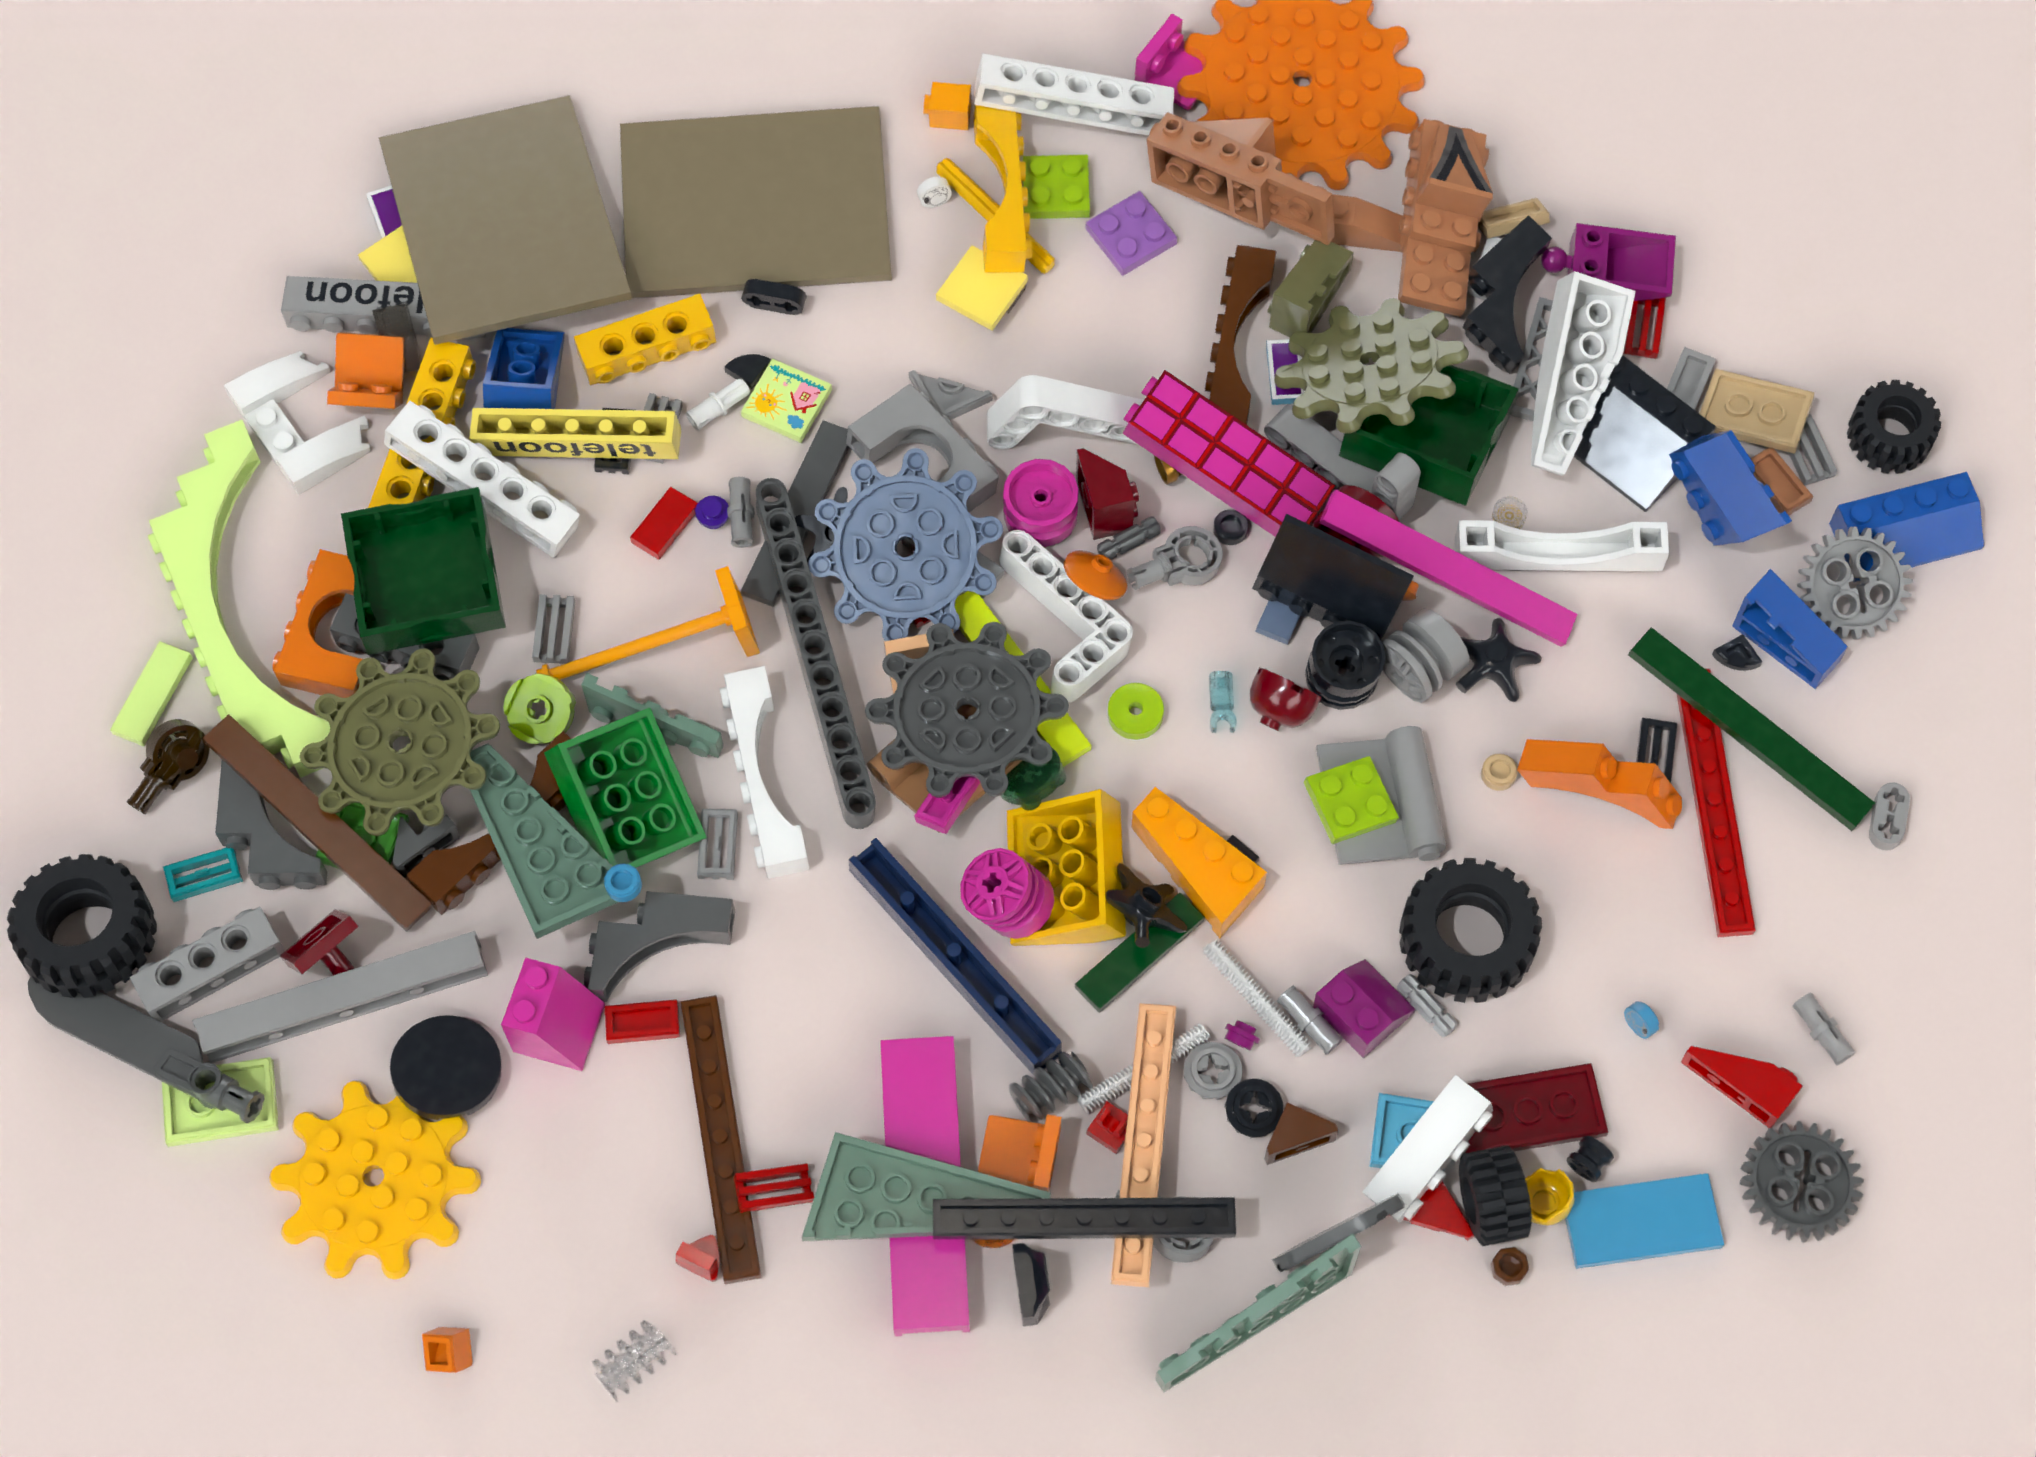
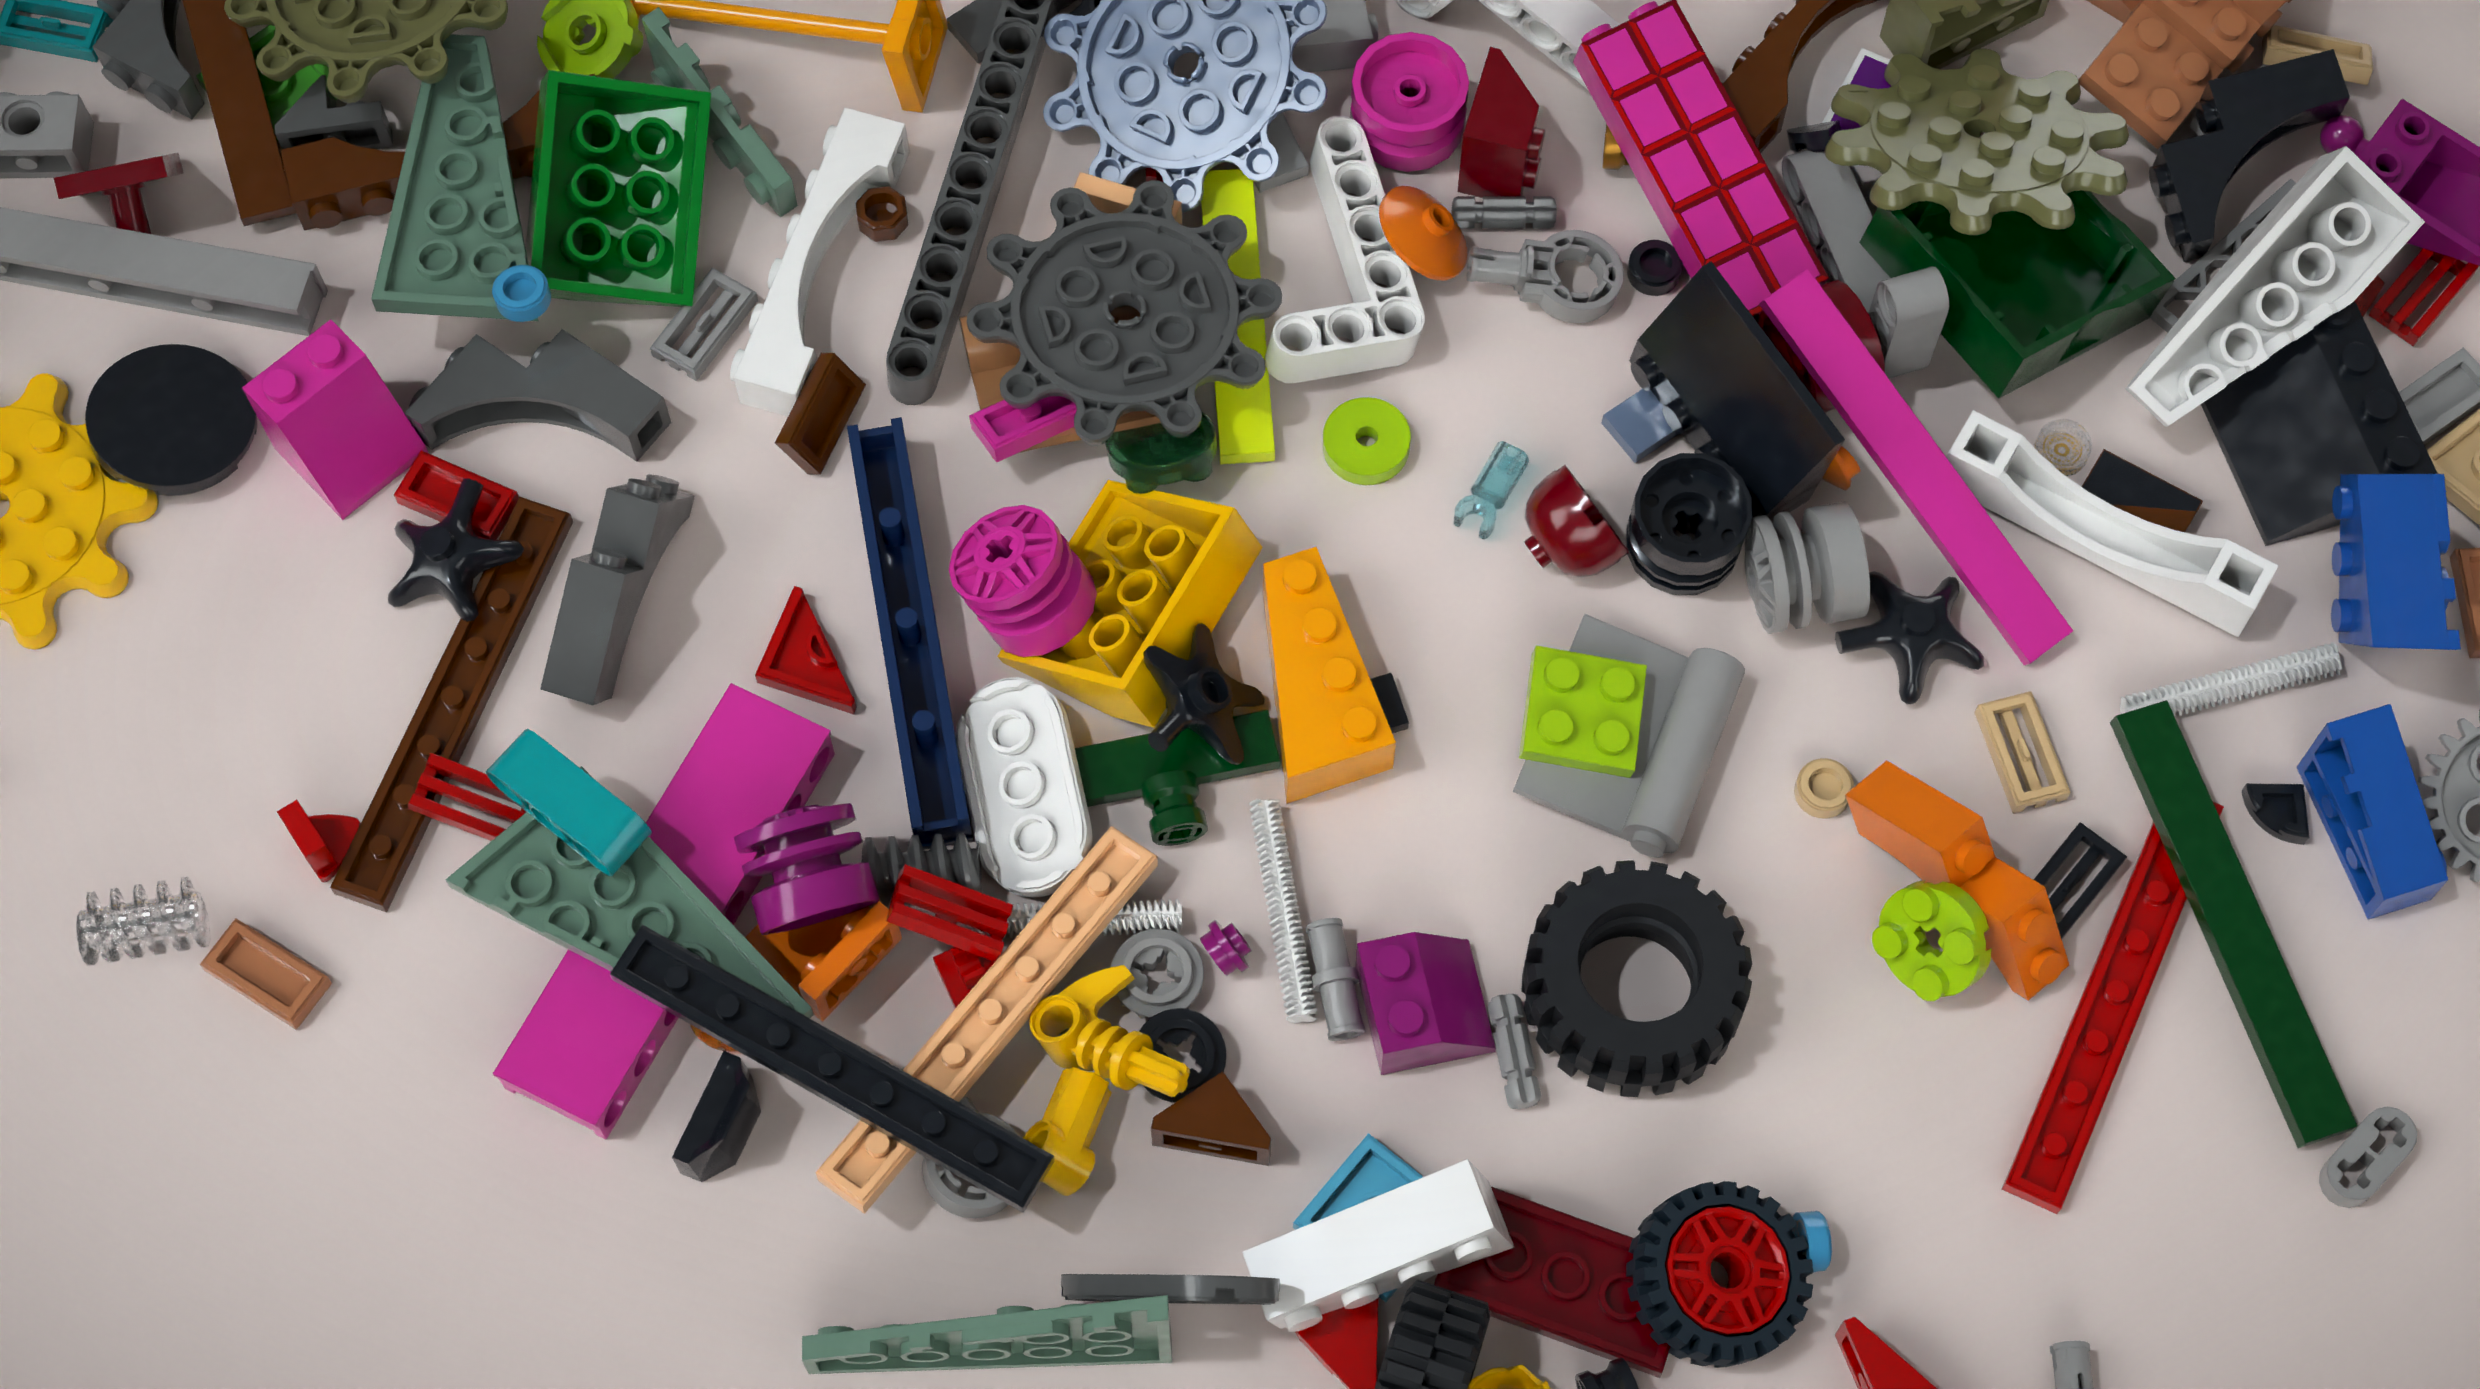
camera: 30 degrees right, 0 degrees up
(664, 1057) = (450, 555): none -> black animal
(718, 1350) = (266, 973): none -> nougat tile
(776, 1023) = (609, 586): none -> dark grey arch
(779, 725) = (882, 213): none -> reddish brown tile
(823, 860) = (820, 413): none -> reddish brown tile
(847, 1155) = (568, 802): none -> teal beam
(904, 1006) = (802, 660): none -> red tile
(998, 1118) = (806, 868): none -> magenta wheel
(1076, 1007) = (1023, 786): none -> white tile
(1086, 1094) = (951, 905): none -> red tile
(1164, 974) = (1174, 807): none -> dark green wheel
(1209, 1127) = (1096, 1043): none -> yellow piece
(1222, 1178) = (1070, 1127): none -> yellow piece
(1276, 404) = (1812, 136): none -> black tile
(1566, 518) = (2141, 493): none -> black tile
(1580, 704) = (2036, 795): none -> tan tile
(1591, 1081) = (1762, 1267): none -> wheel
(1604, 840) = (1907, 951): none -> lime plate
(1676, 597) = (2241, 681): none -> white axle

